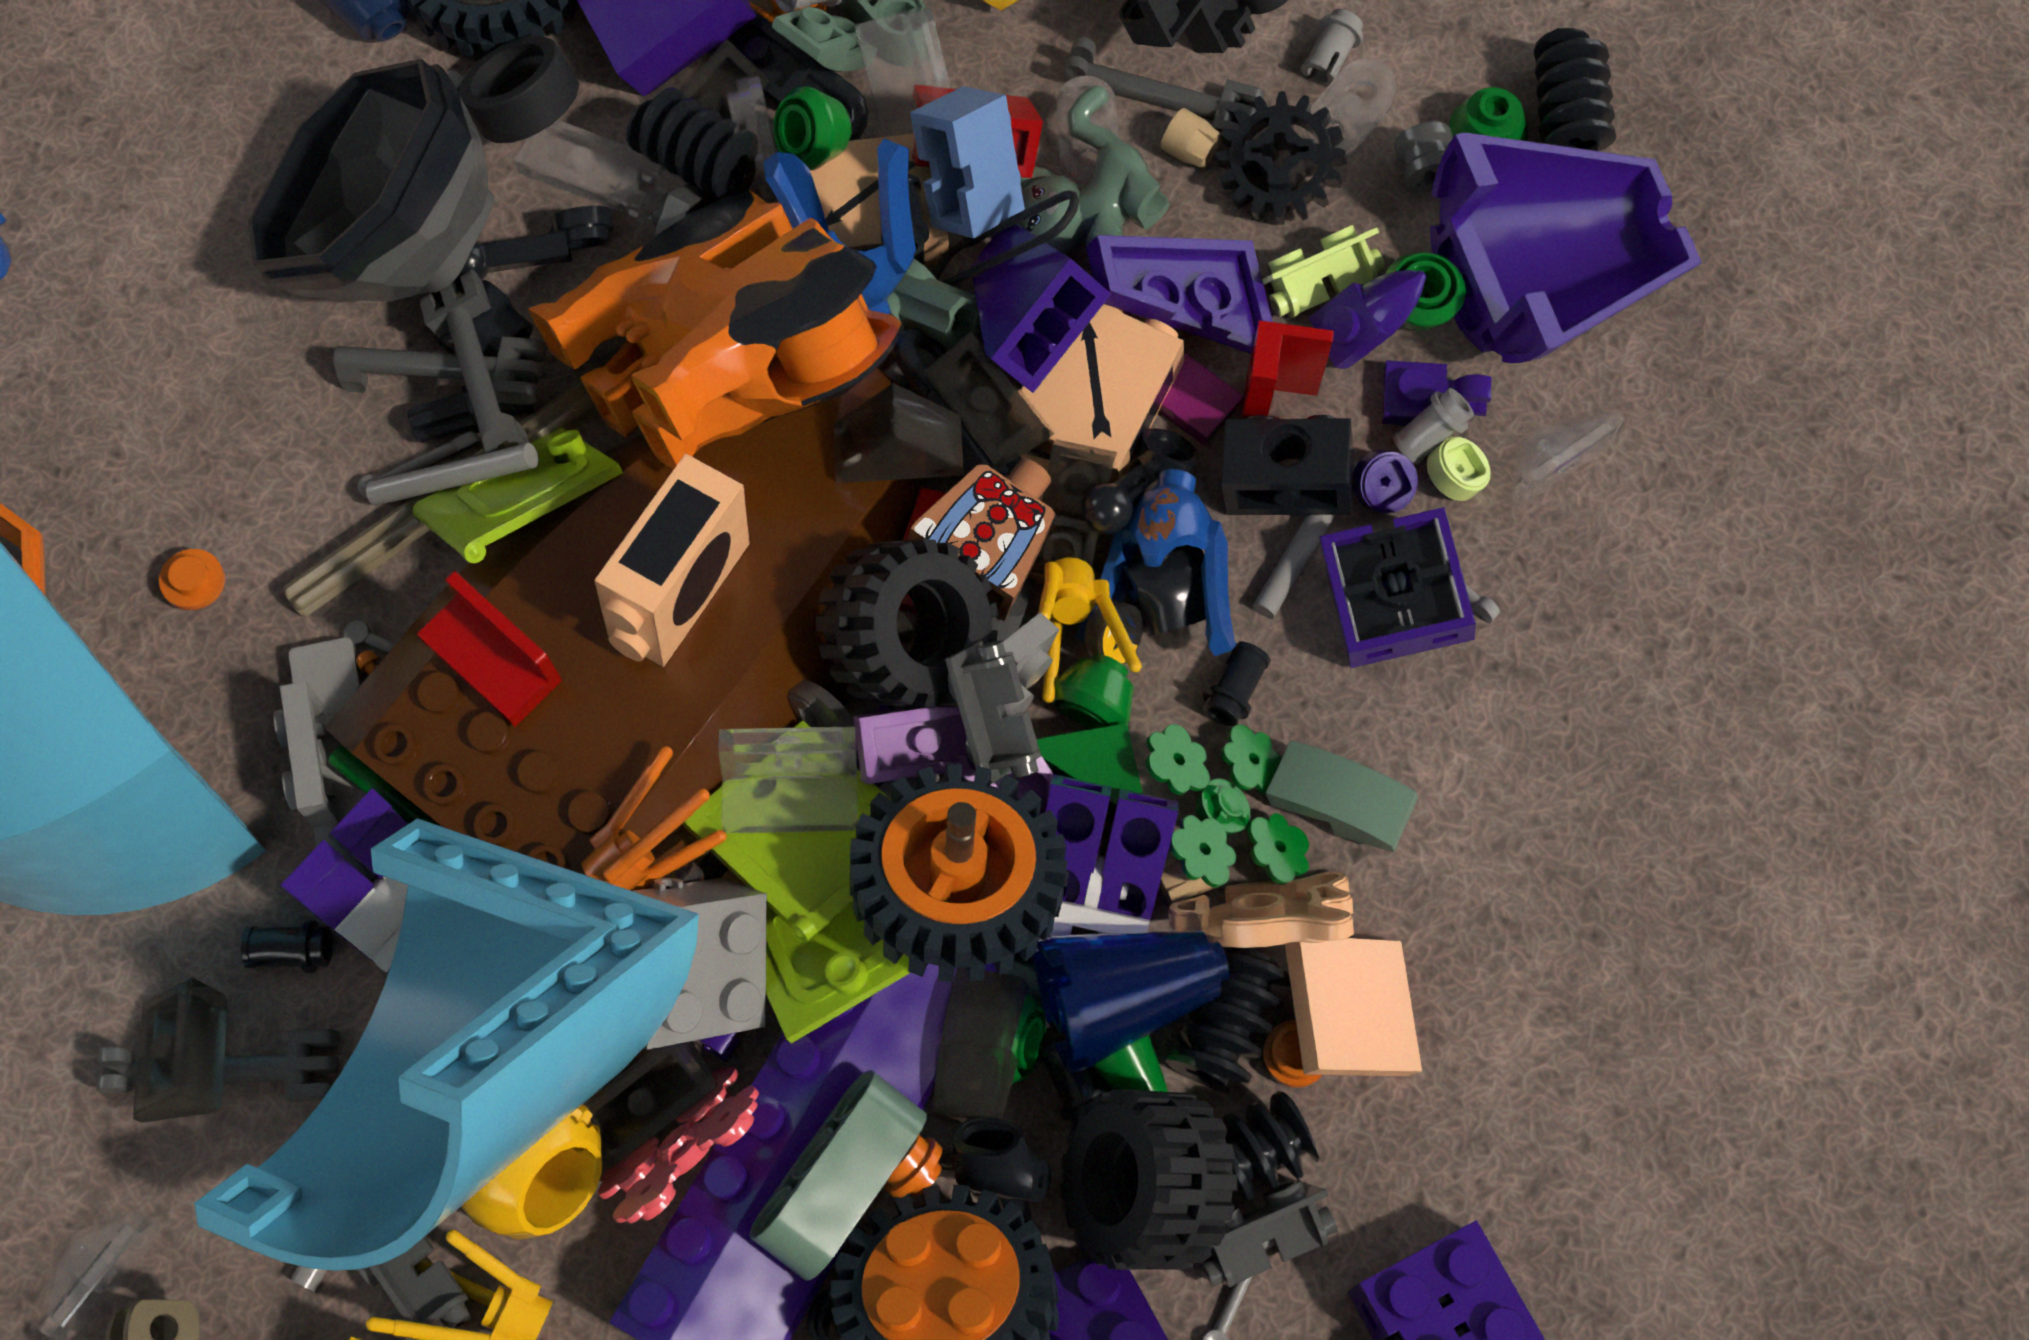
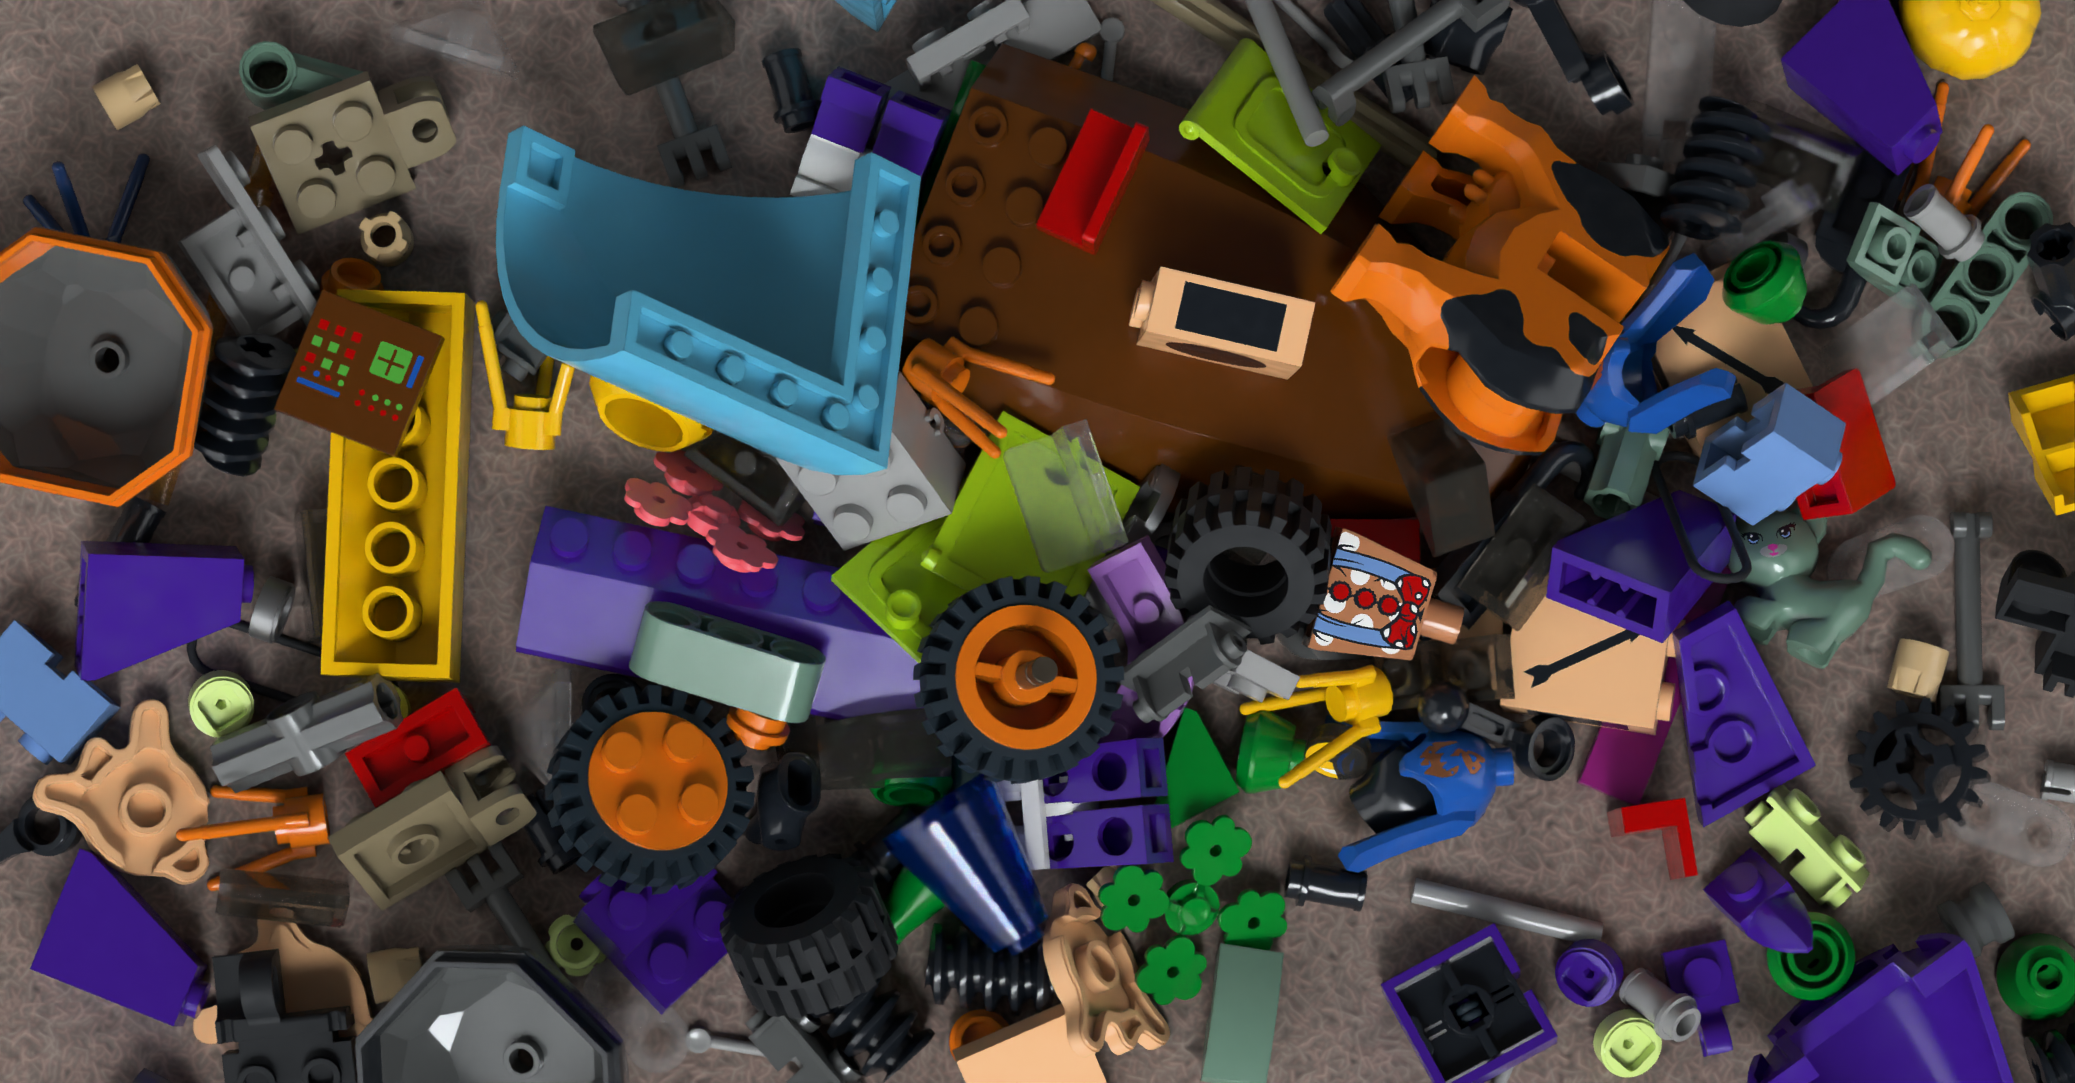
camera: 75 degrees right, 15 degrees up
(1312, 486) = (1557, 908): black brick -> none

